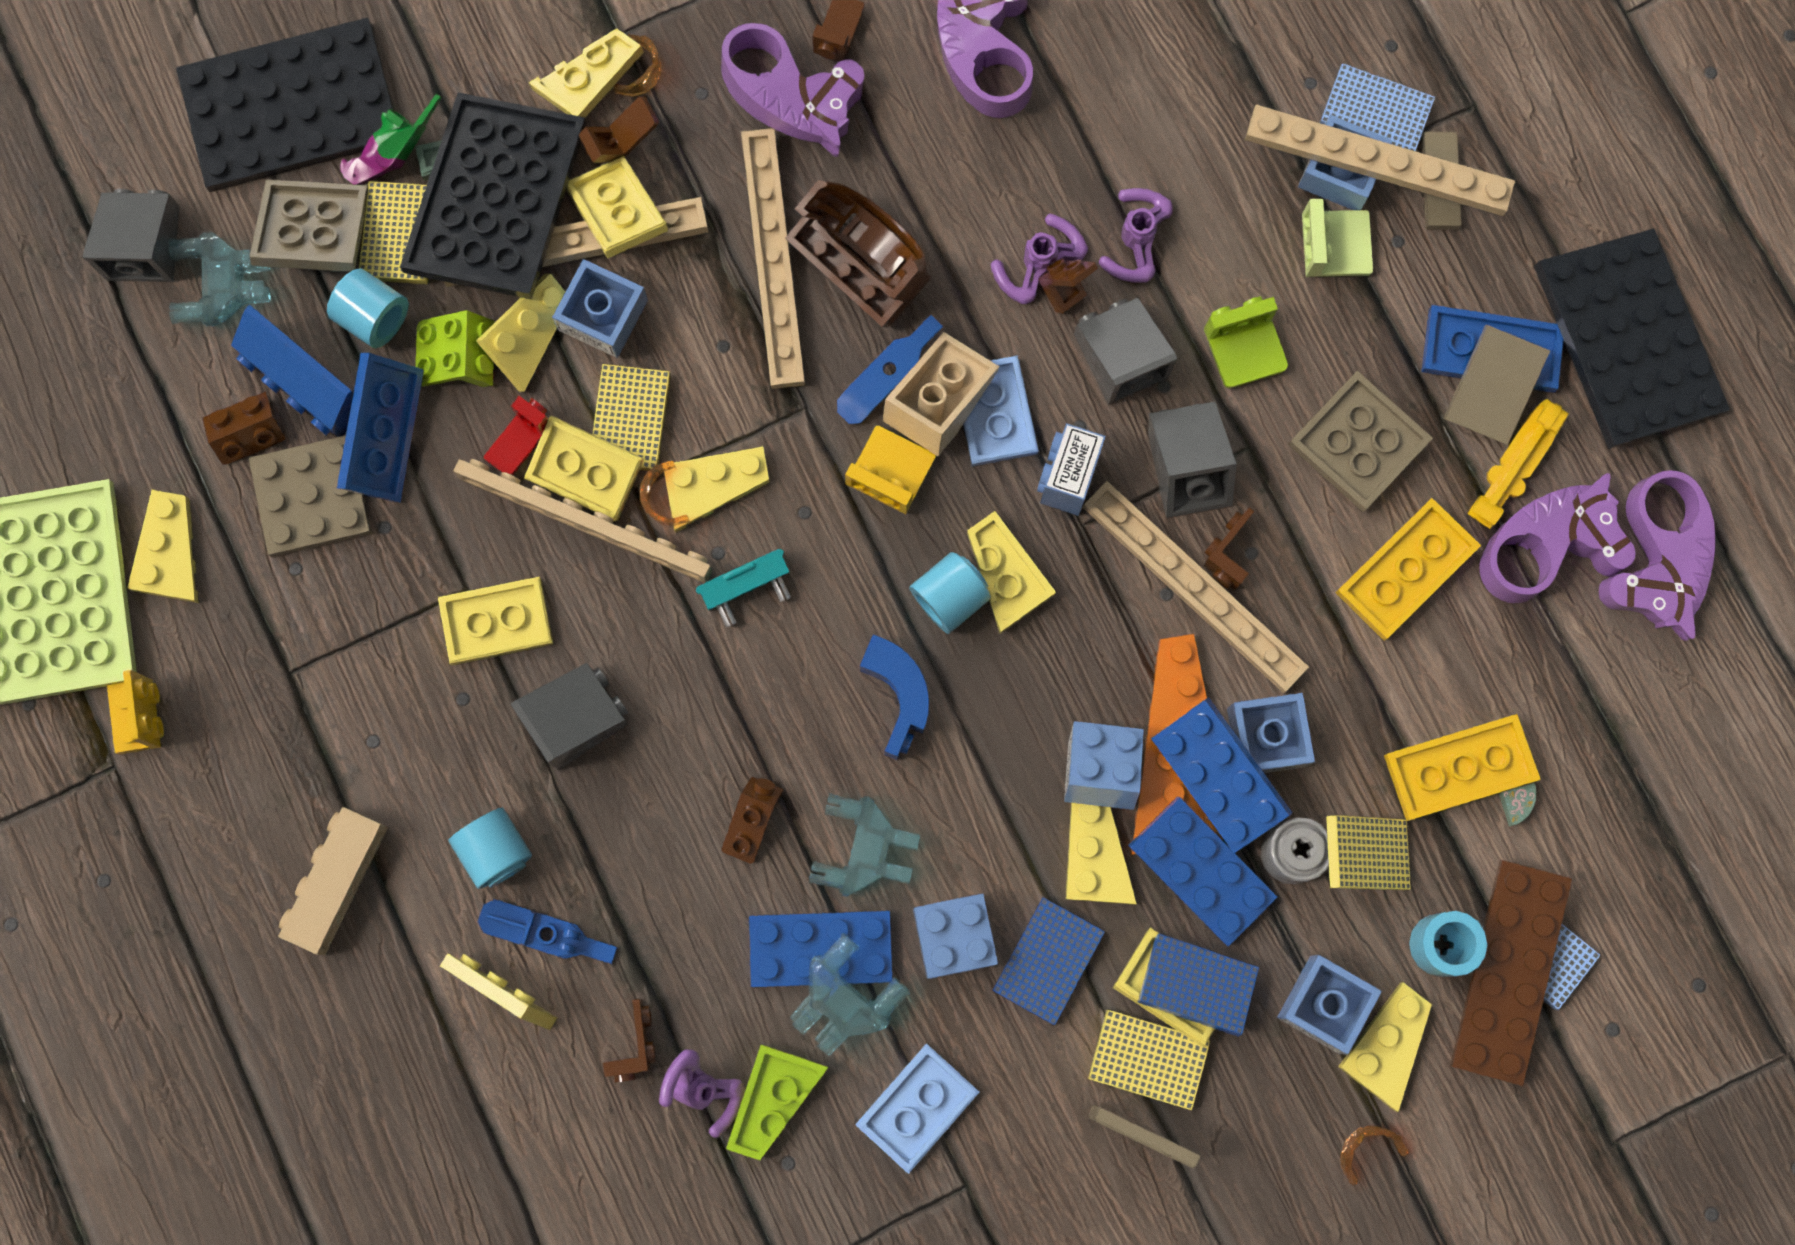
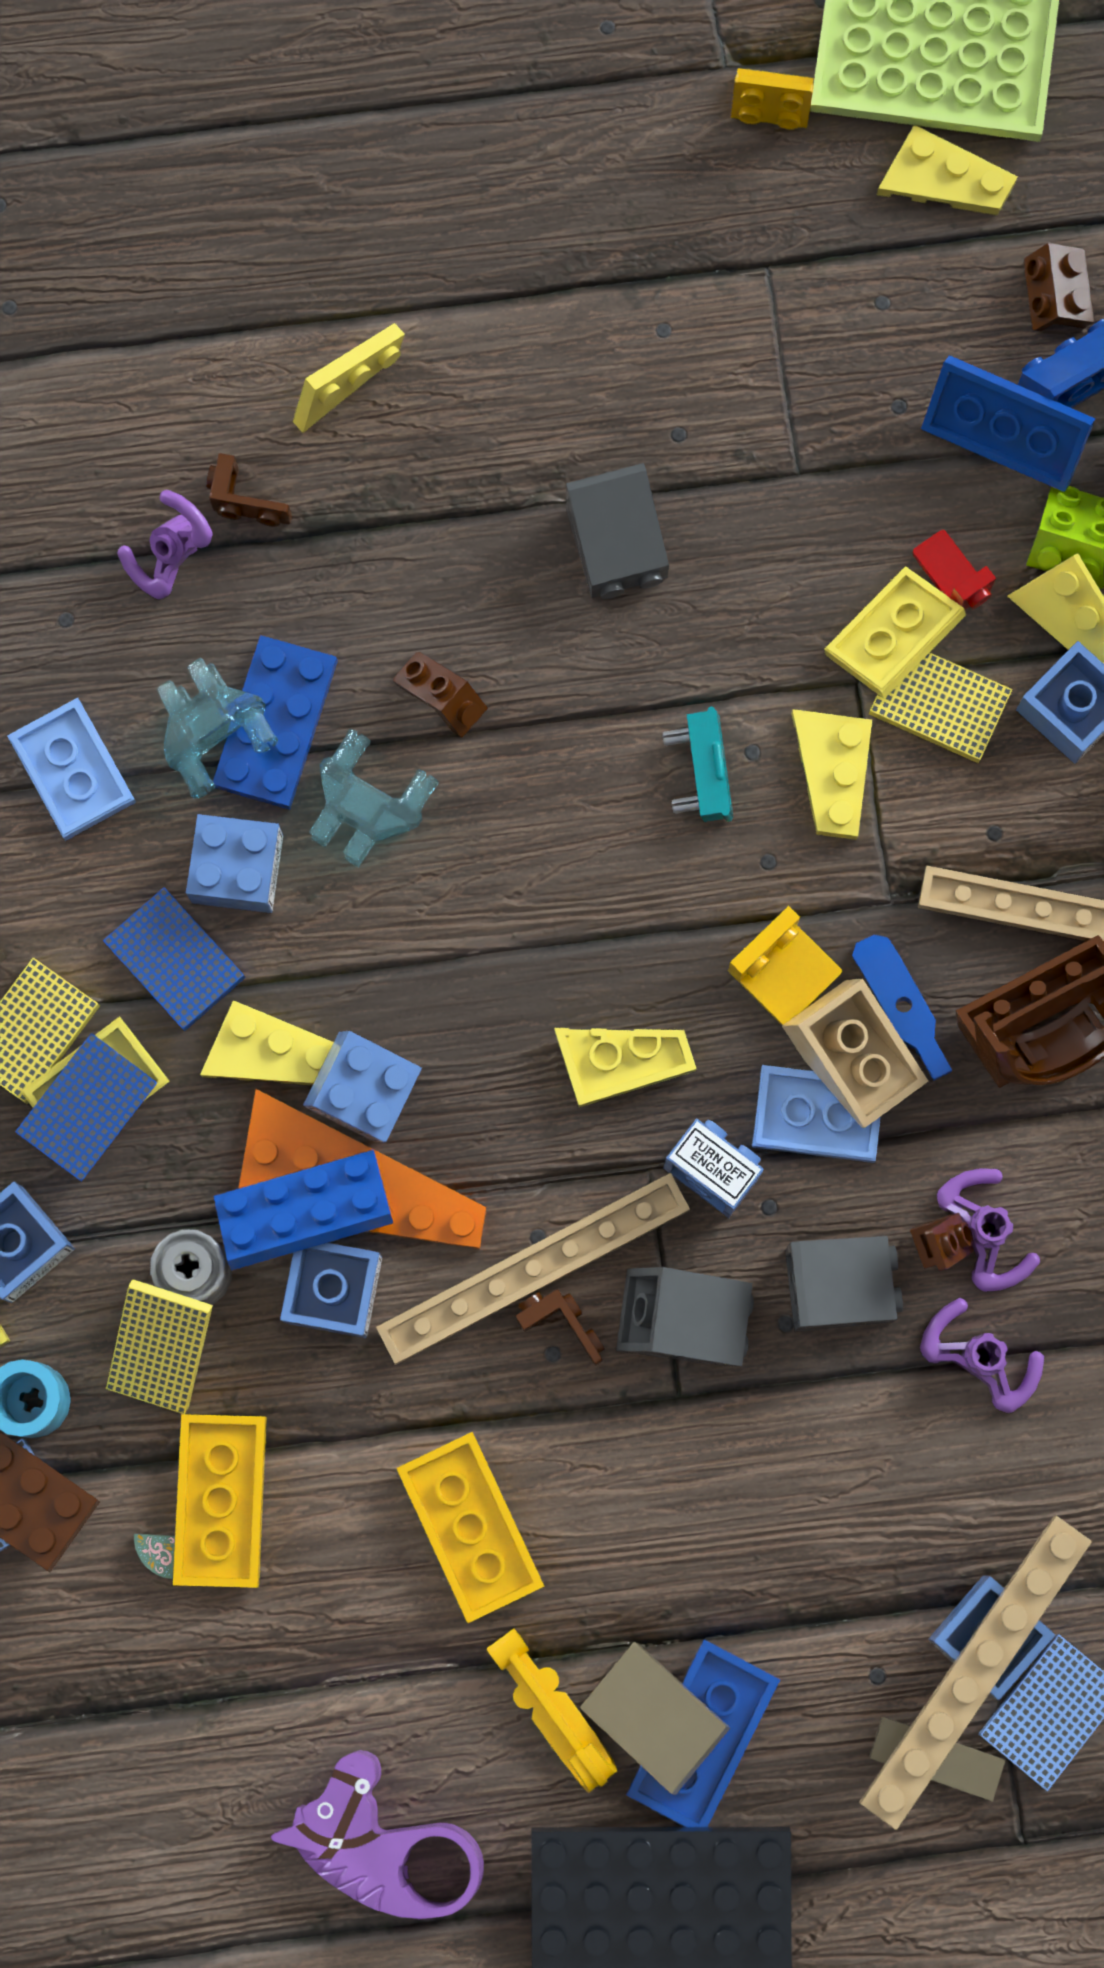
camera: 115 degrees right, 0 degrees up
(302, 501) = (957, 319): dark tan plate -> none
(332, 881) = (524, 245): tan brick -> none
(490, 849) = (499, 409): medium azure piece -> none
(495, 621) = (753, 491): light yellow tile -> none
(525, 928) = (409, 428): blue piece -> none
(597, 525) = (824, 626): tan plate -> none
(645, 492) = (841, 688): clear orange helmet -> none
(770, 1099) = (137, 620): lime wing -> none
(897, 669) = (525, 906): blue arch -> none
(951, 591) = (616, 984): medium azure piece -> none
(1202, 871) = (208, 1157): blue plate -> none
(1246, 342) = (803, 1435): lime bracket -> none
(1336, 241) = (896, 1595): yellowish green bracket -> none
(1360, 441) = (641, 1529): dark tan plate -> none
(1567, 519) = (465, 1750): medium lavender animal -> none

